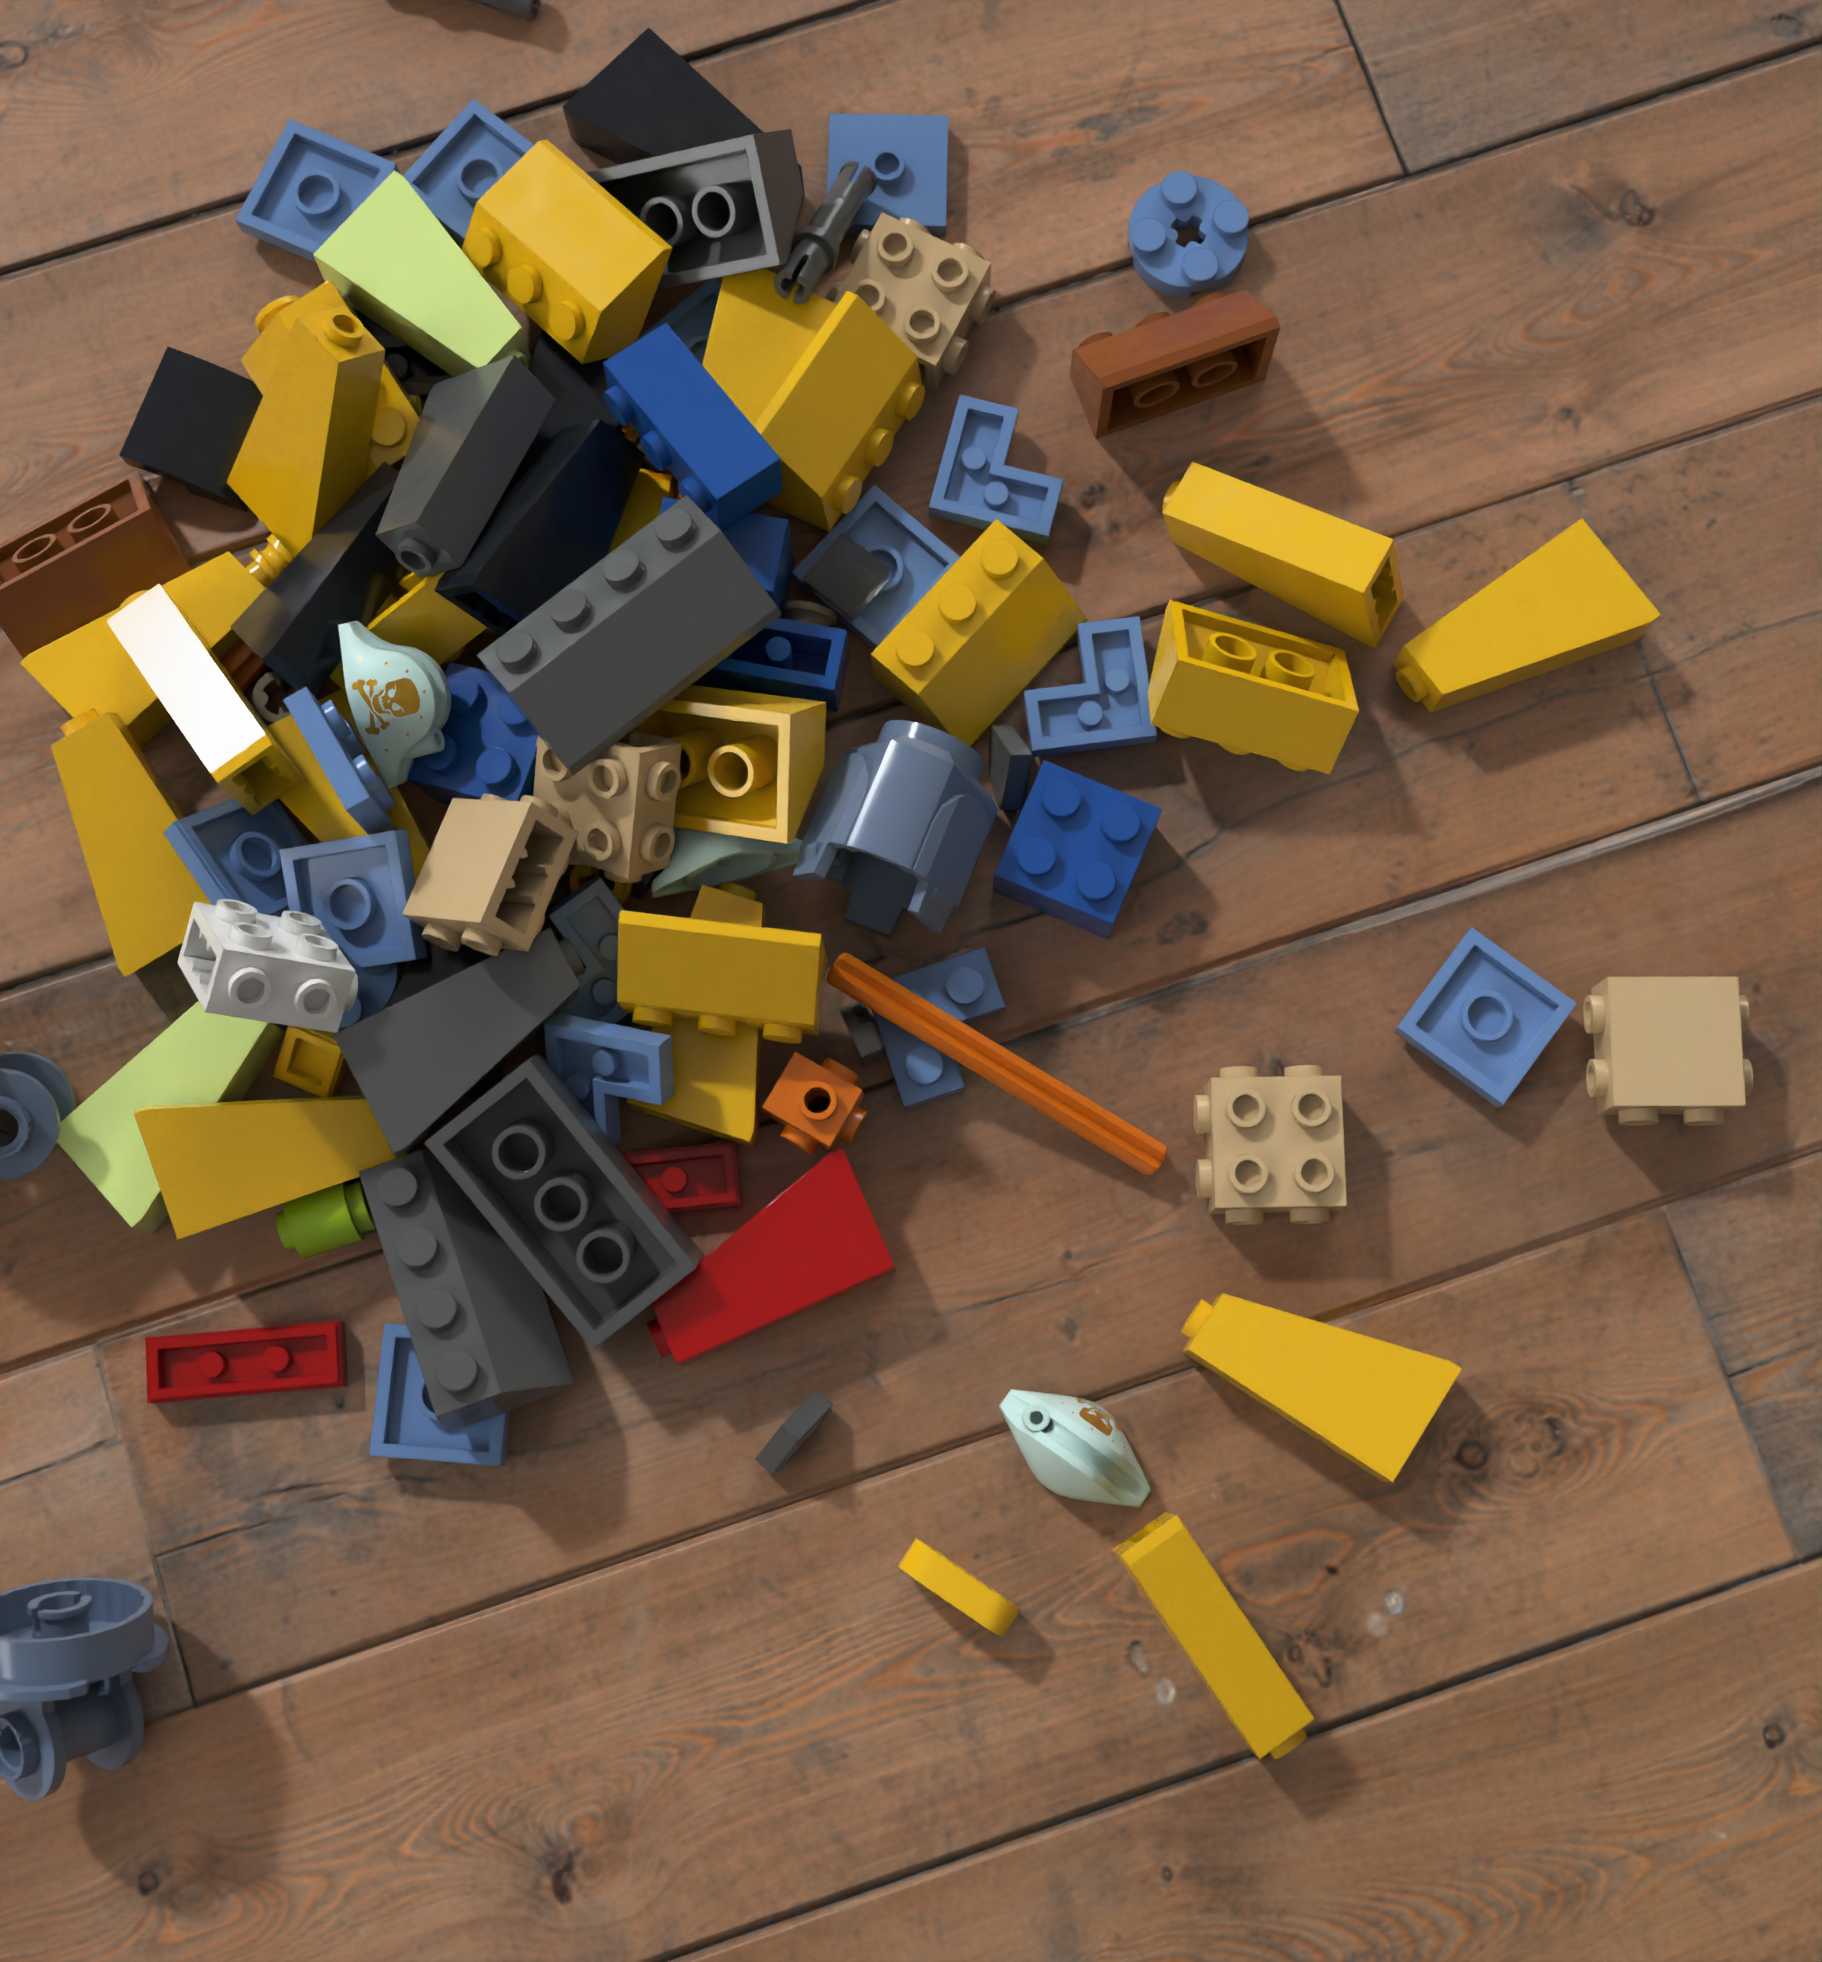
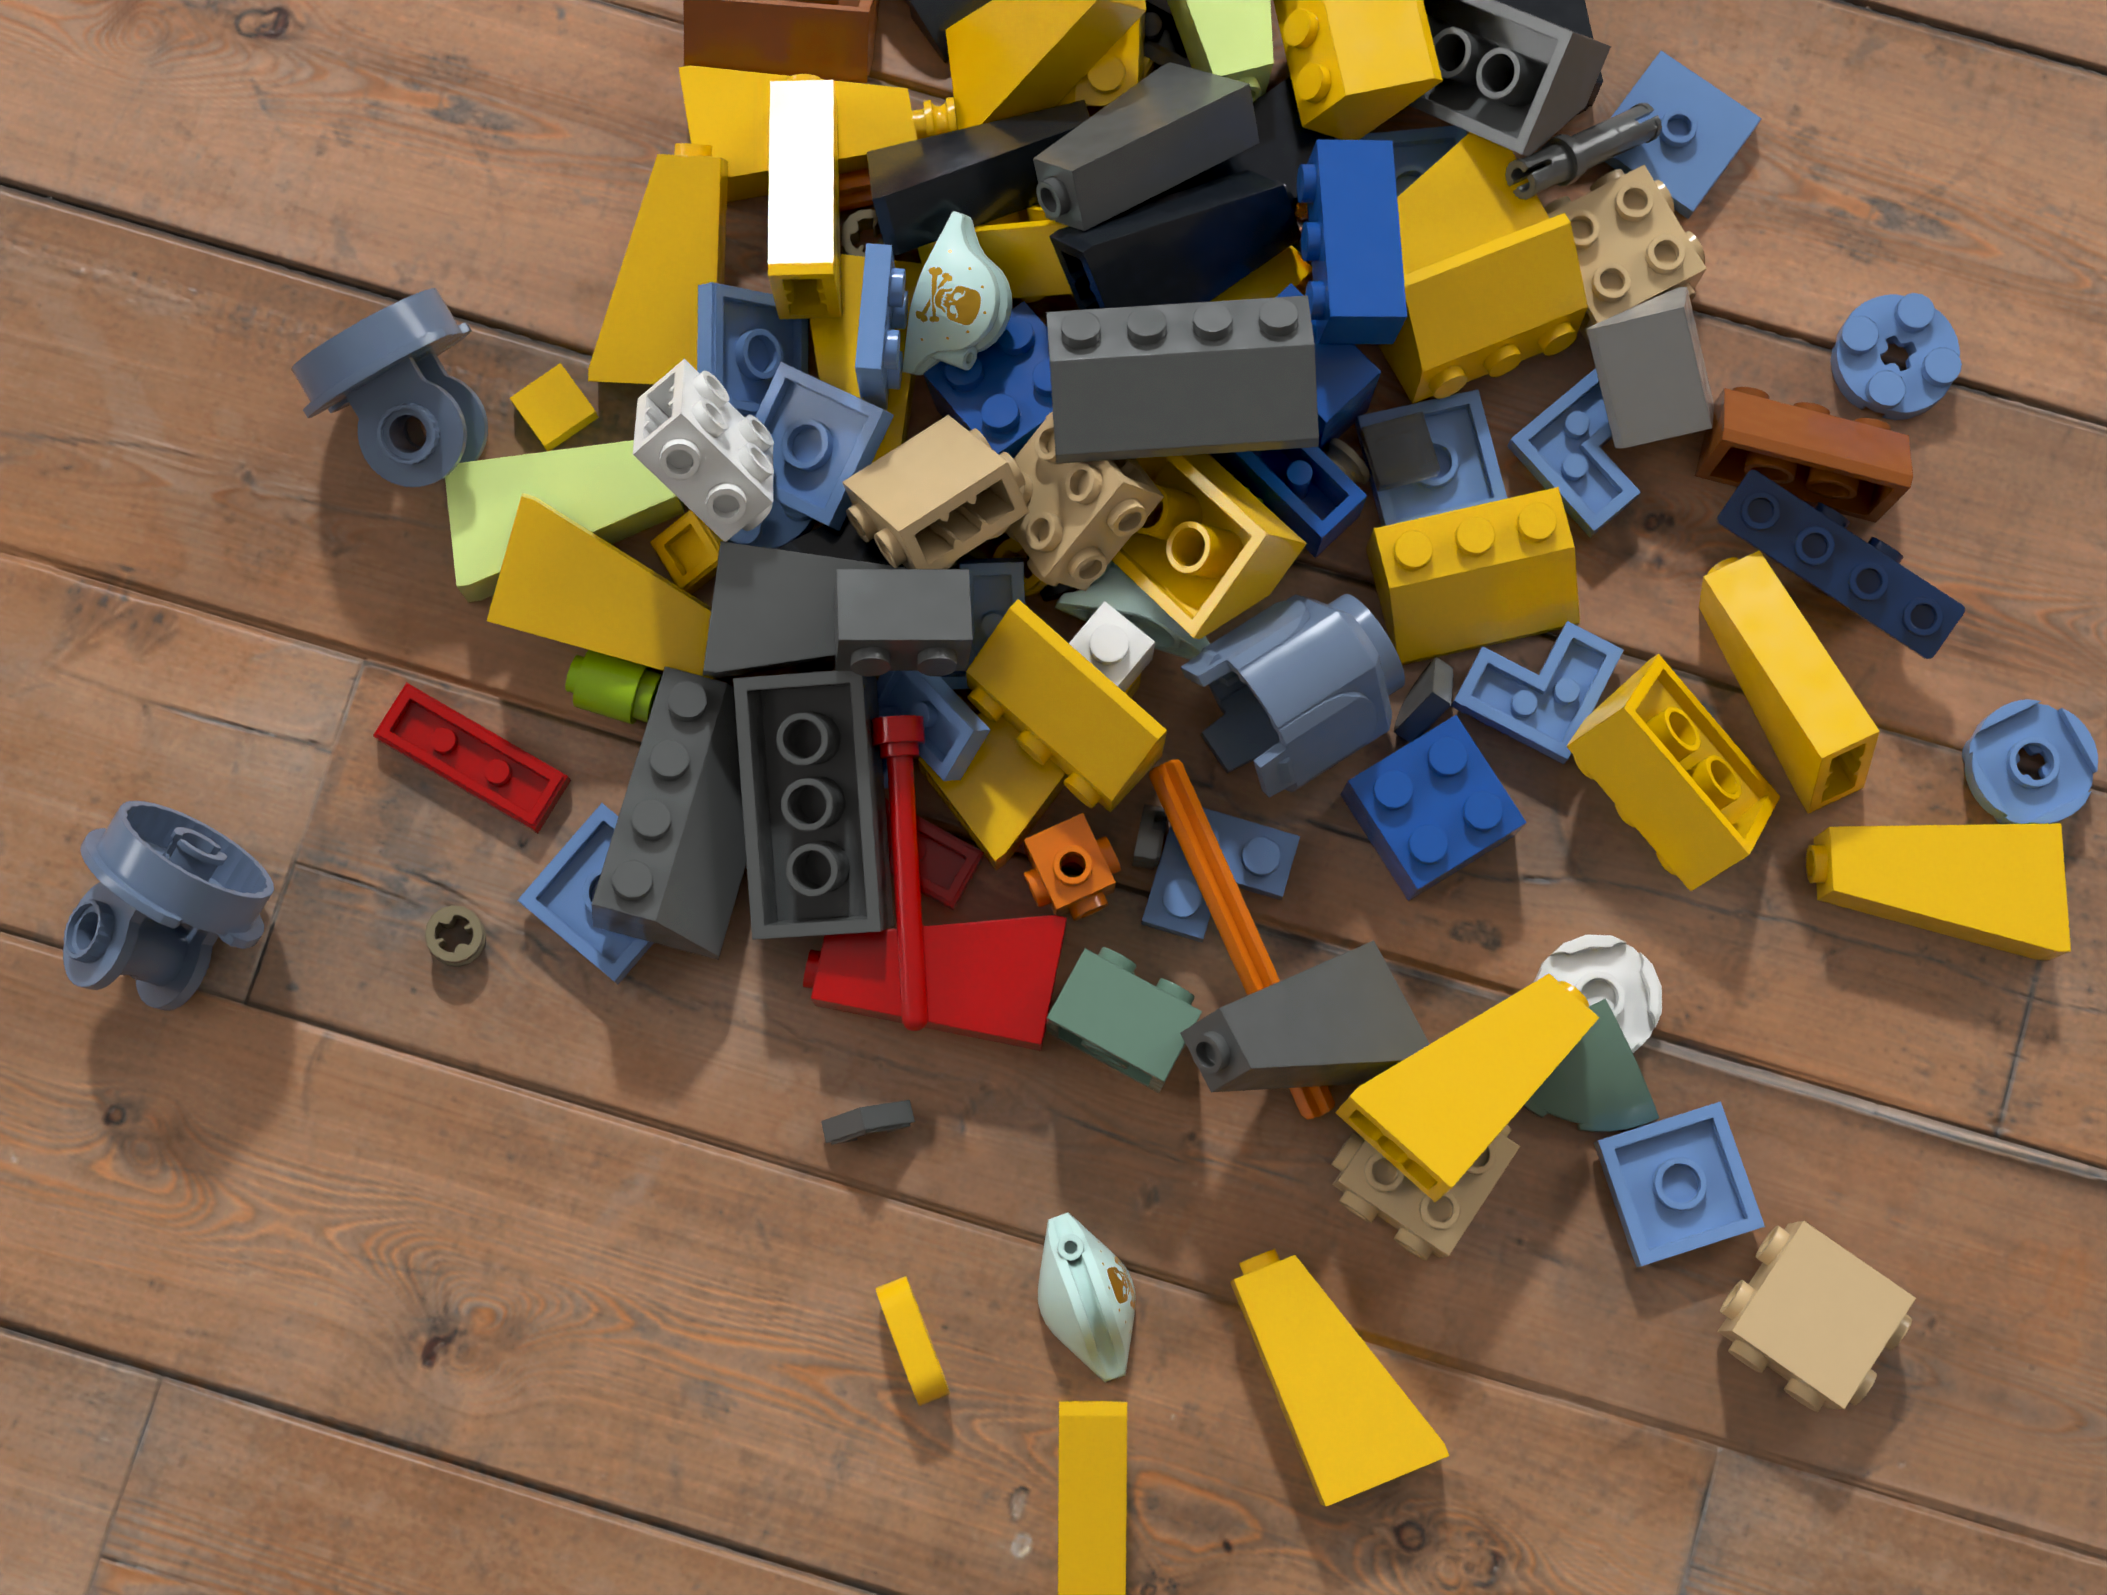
camera: 30 degrees right, 0 degrees up
(111, 1019) = (554, 407): none -> yellow tile
(320, 1511) = (447, 918): none -> dark tan bush
(535, 995) = (902, 621): none -> dark grey brick
(602, 1100) = (899, 744): none -> red piece
(725, 894) = (1114, 646): none -> white brick
(948, 1196) = (1123, 1017): none -> sand green brick
(1005, 375) = (1652, 371): none -> light grey slope
(1109, 1098) = (1309, 1030): none -> dark grey slope
(1264, 428) = (1840, 564): none -> dark blue bracket
(1268, 1062) = (1462, 1090): none -> yellow slope
(1314, 913) = (1615, 971): none -> white tile
(1342, 984) = (1597, 1082): none -> sand green brick
(1555, 479) = (2038, 728): none -> medium blue plate

